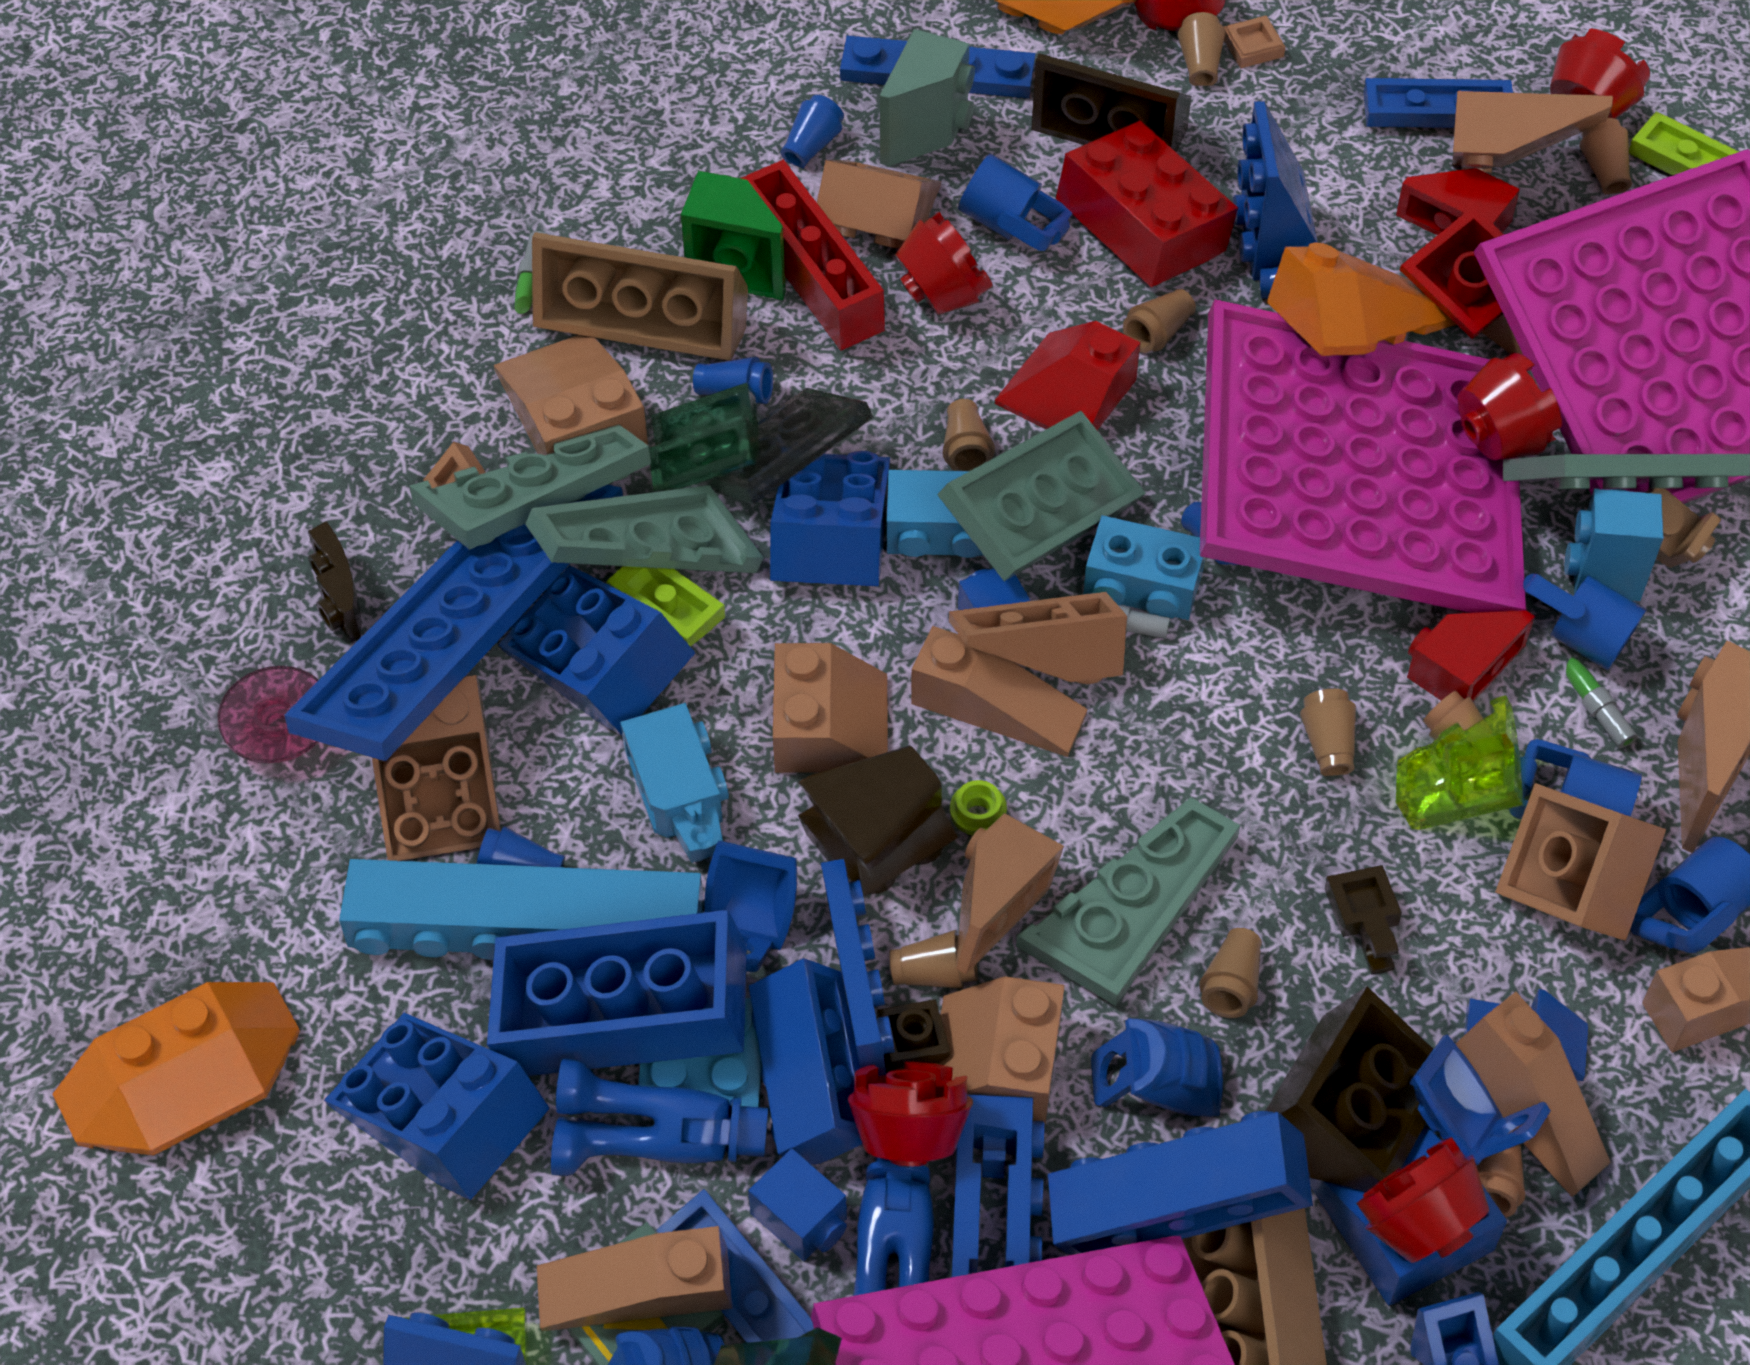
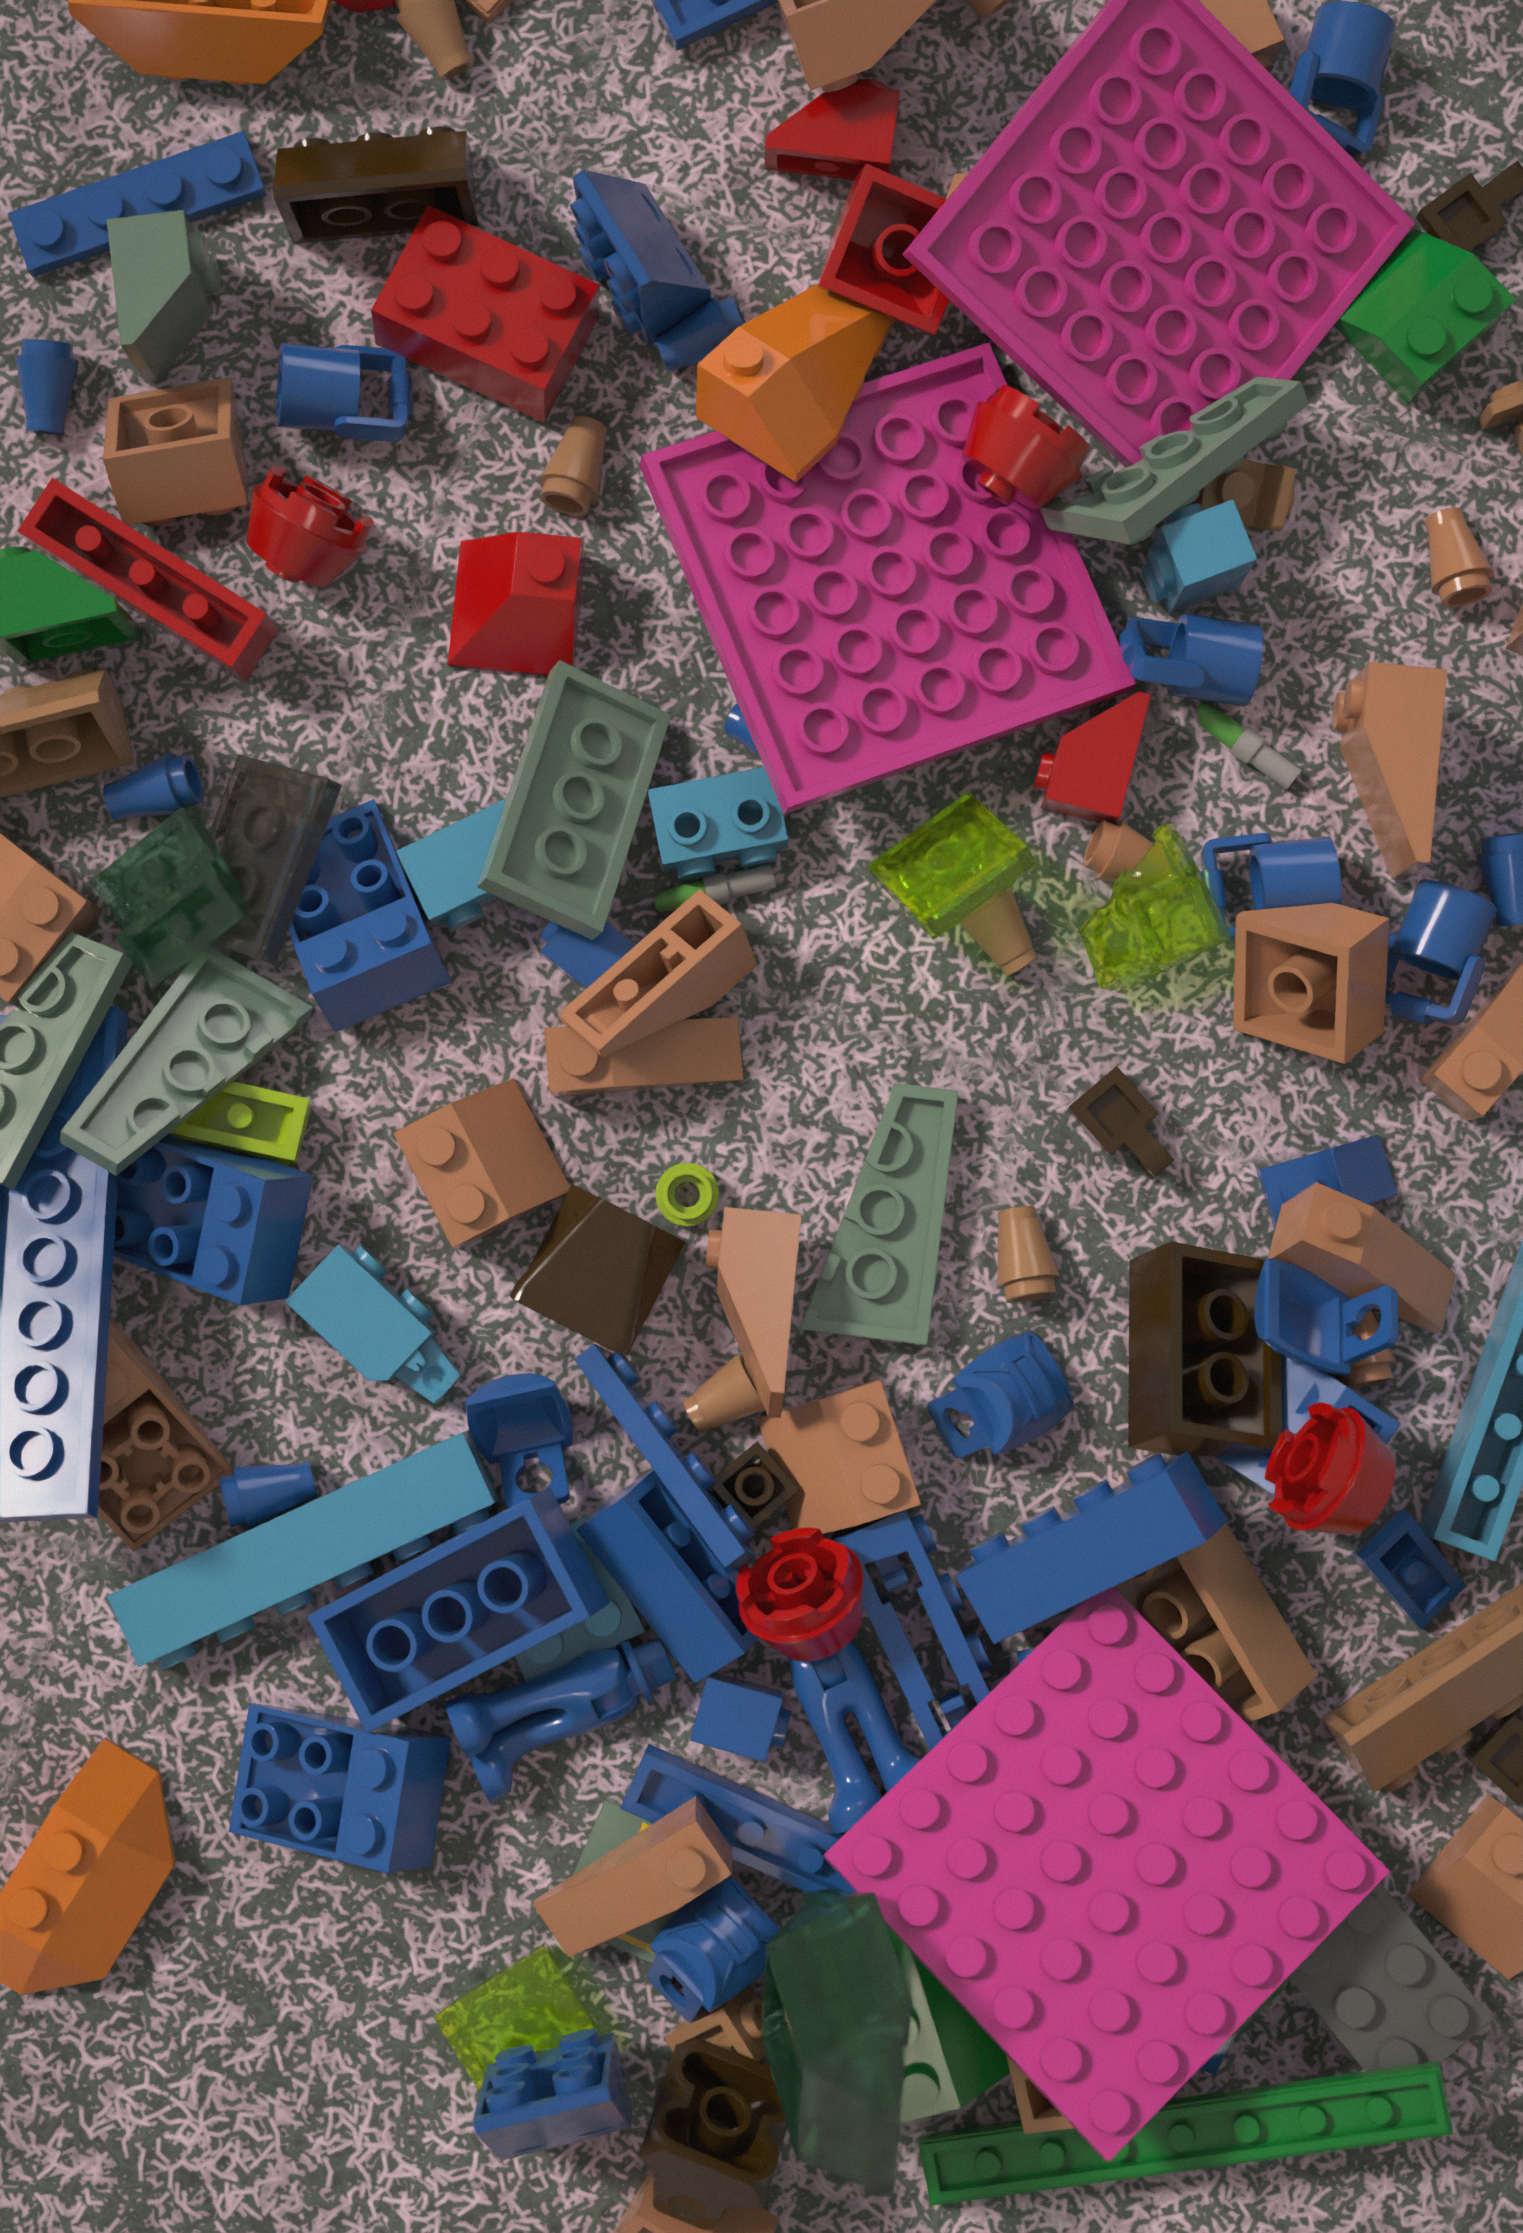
camera: 25 degrees left, 30 degrees up
(966, 437) = (447, 741): medium nougat cone -> none
(1300, 667) = (952, 865): none -> clear neon green plate

